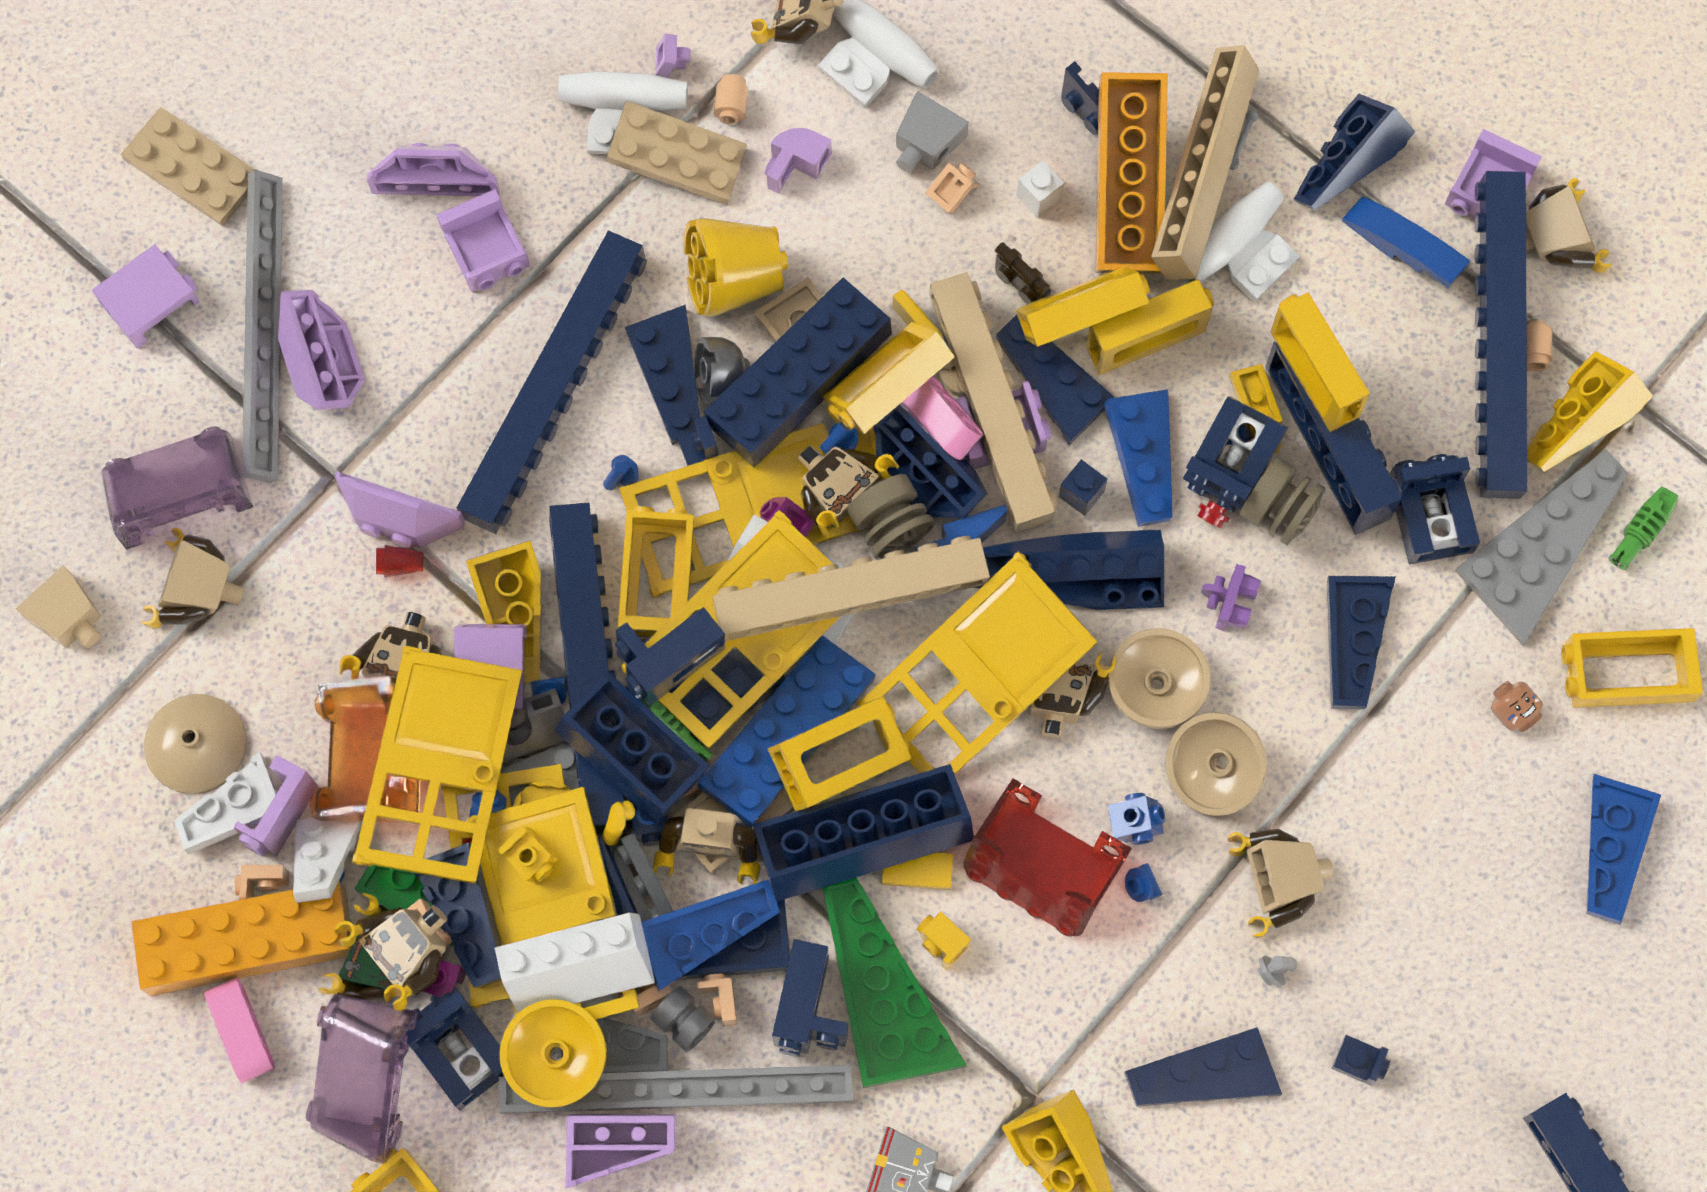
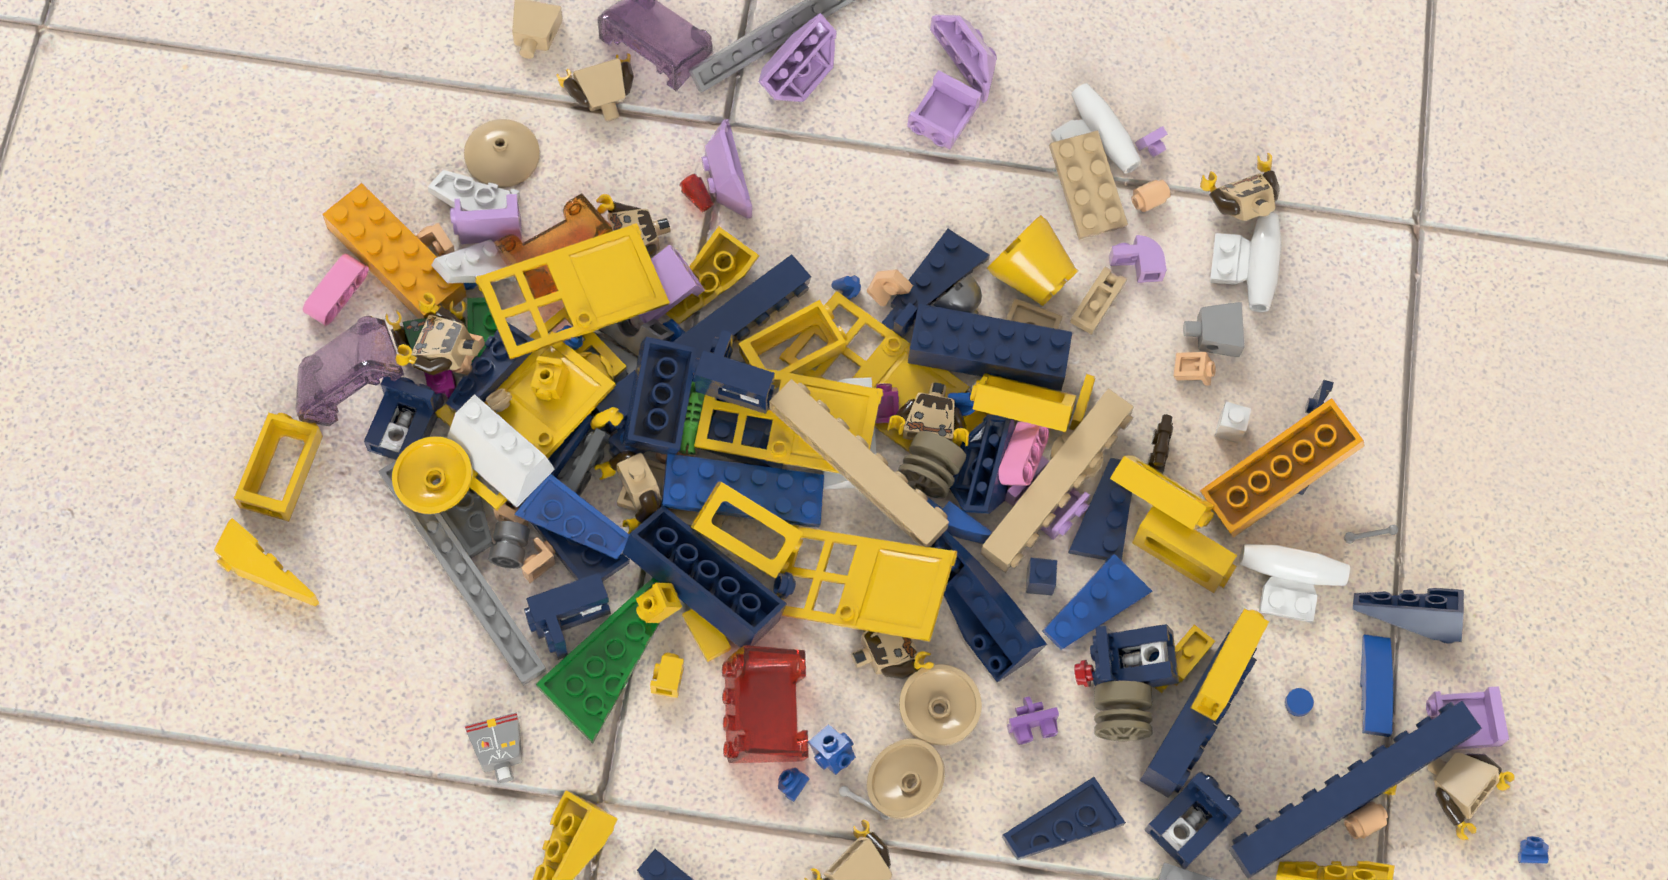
camera: 50 degrees right, 5 degrees down
(513, 926) = (499, 400): none -> tan plate
(552, 382) = (879, 208): dark blue brick -> none
(614, 1142) = (401, 550): lavender wedge -> none
(648, 430) = (888, 284): none -> light nougat bracket
(813, 231) = (1098, 301): none -> tan plate
(863, 889) = (658, 603): none -> yellow brick
(923, 754) = (784, 585): none -> dark blue plate
(1183, 836) = (844, 791): none -> white hinge
(1205, 163) = (1329, 513): tan brick -> none
(1373, 327) = (1299, 702): none -> blue tile
(1658, 213) = (1533, 851): none -> blue plate

